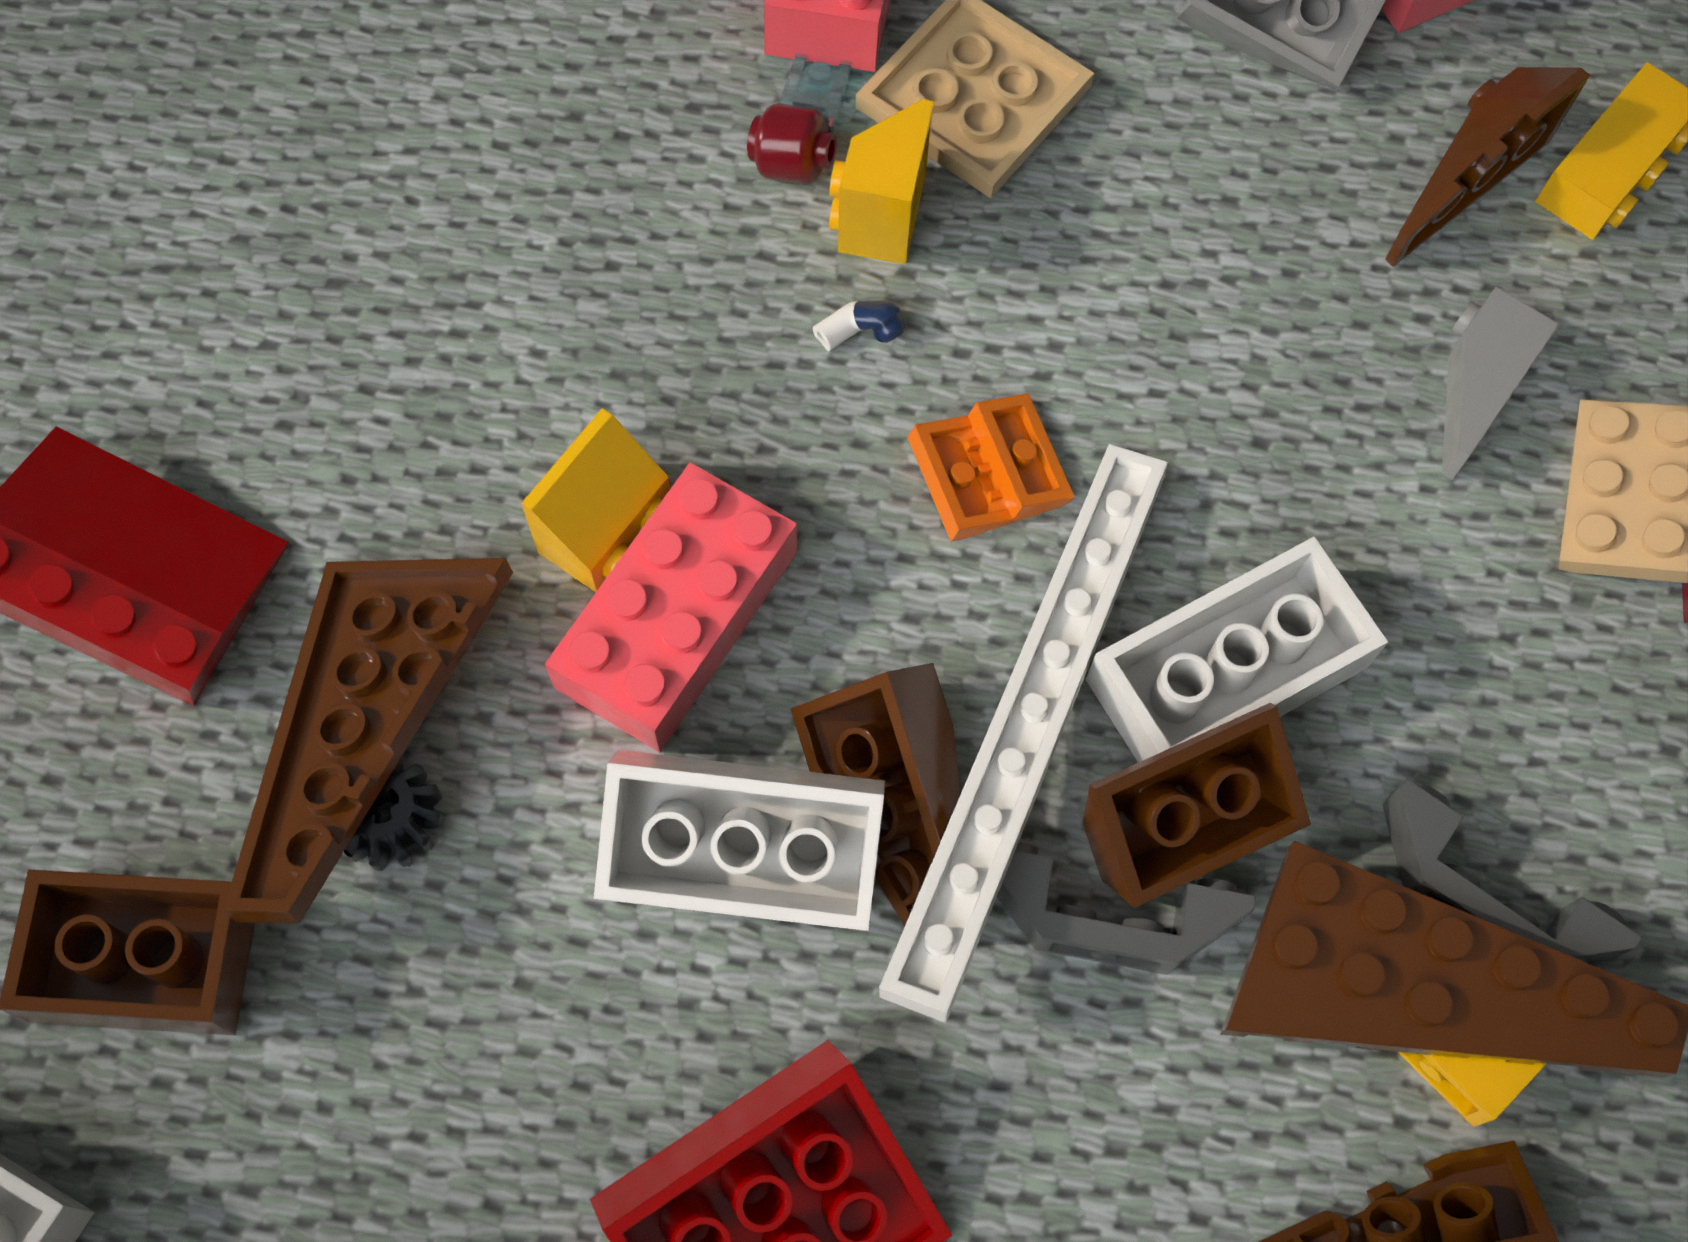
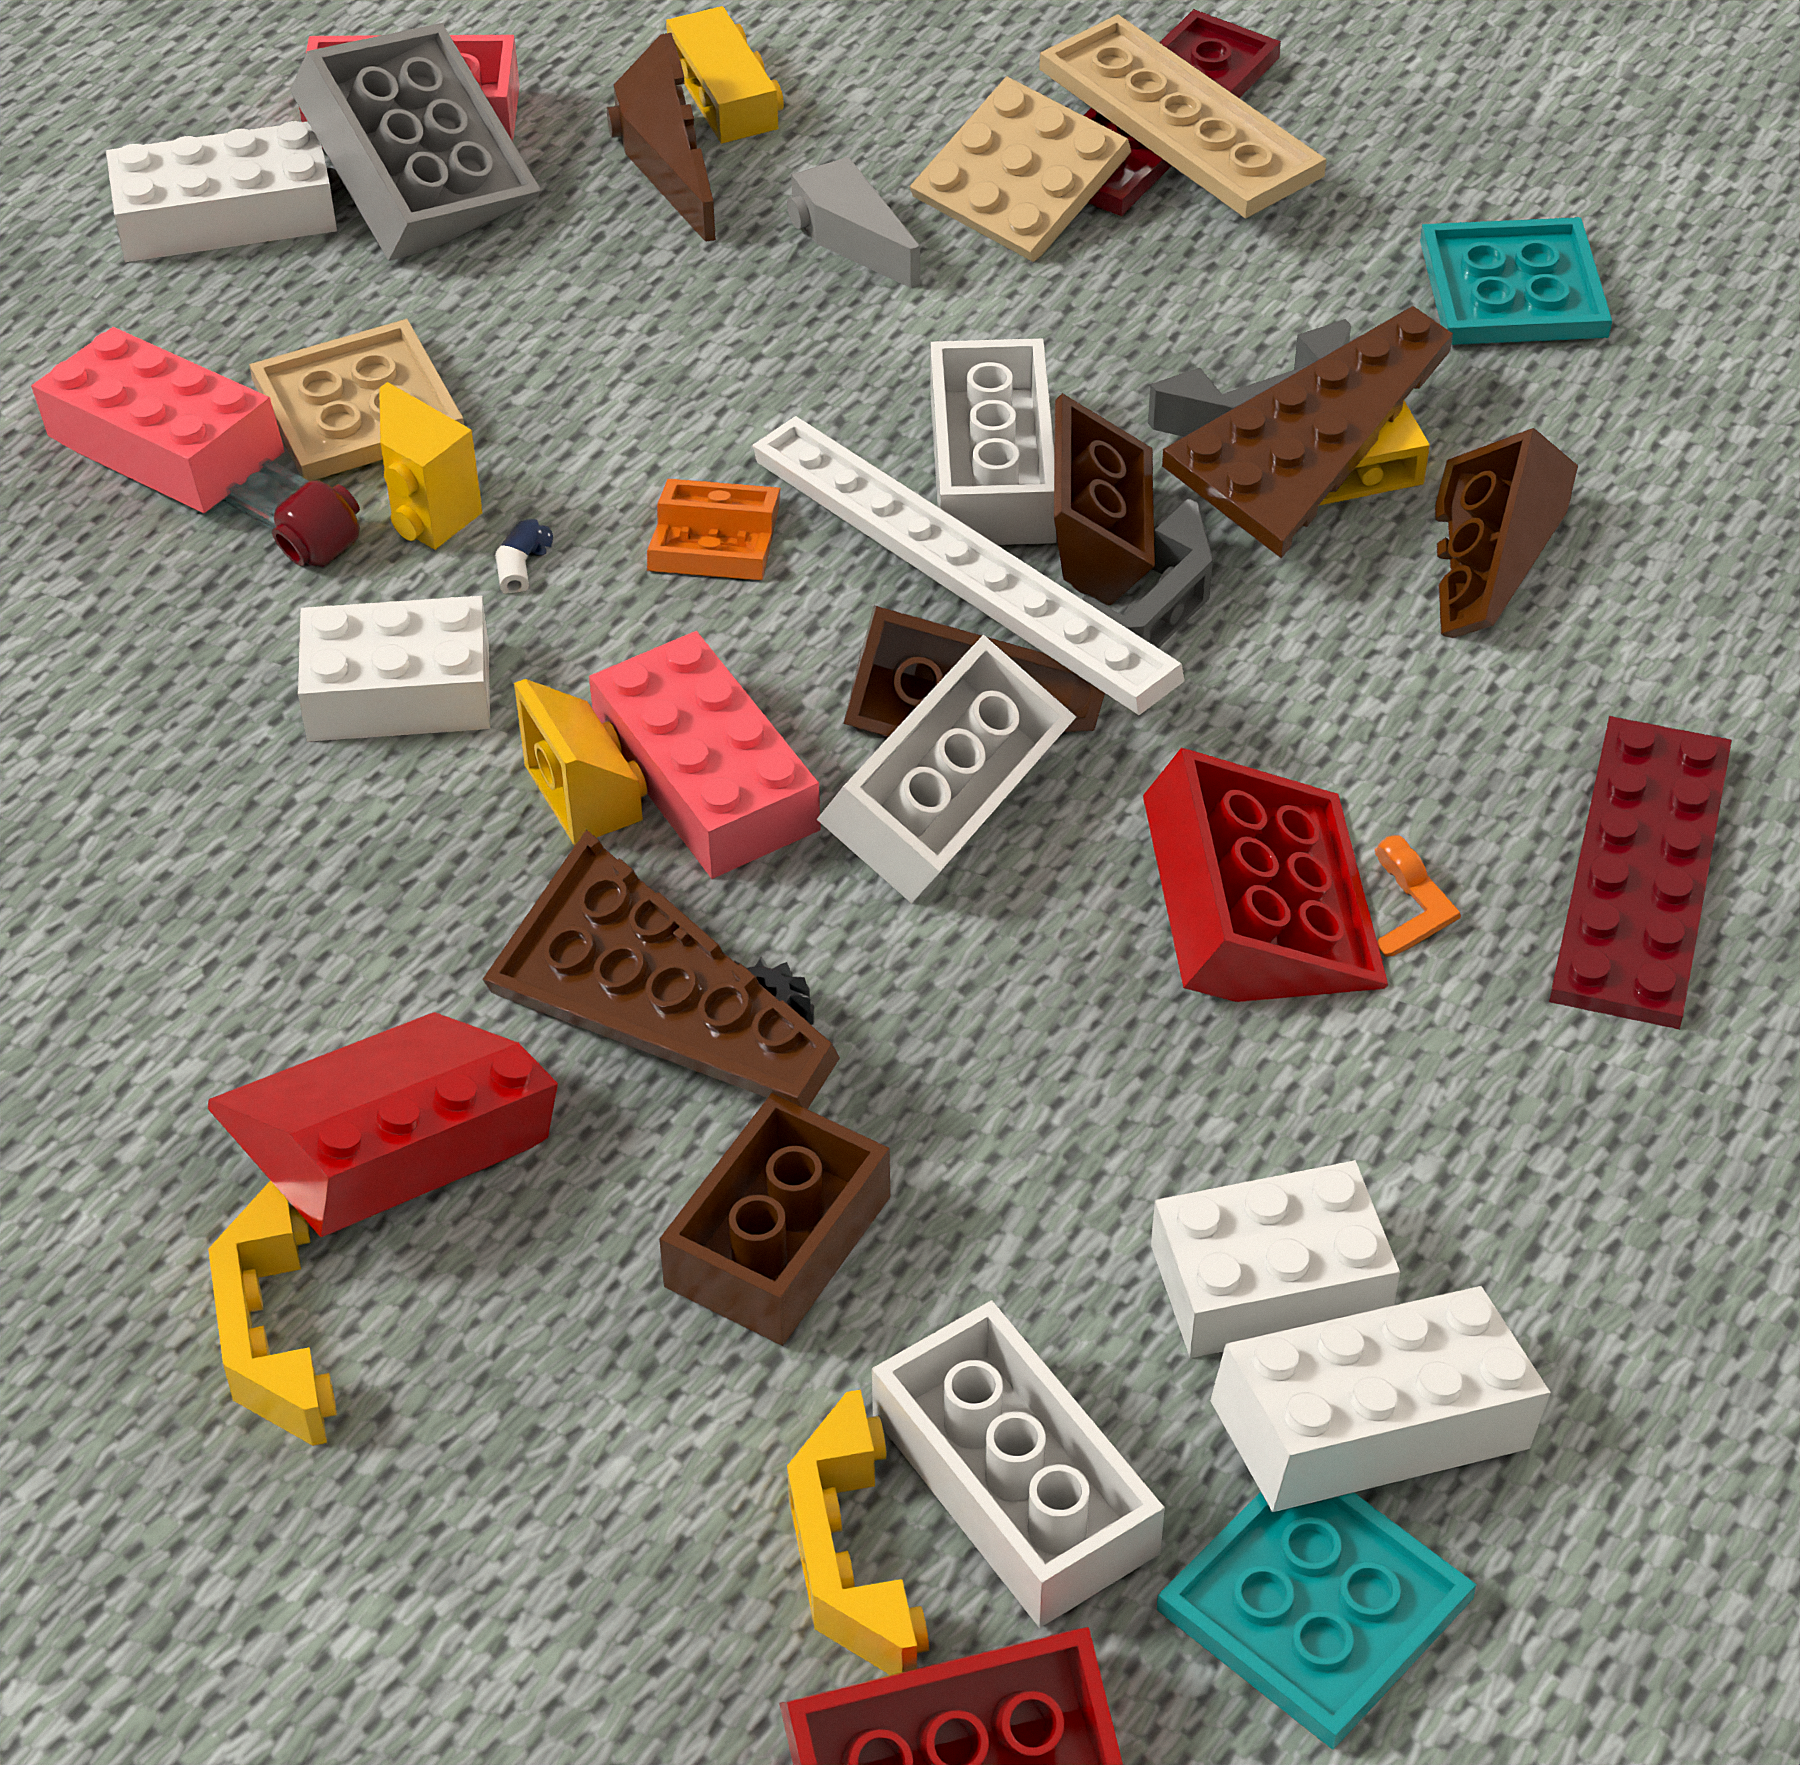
camera: 60 degrees left, 20 degrees down
(647, 299) = (394, 668): none -> white brick

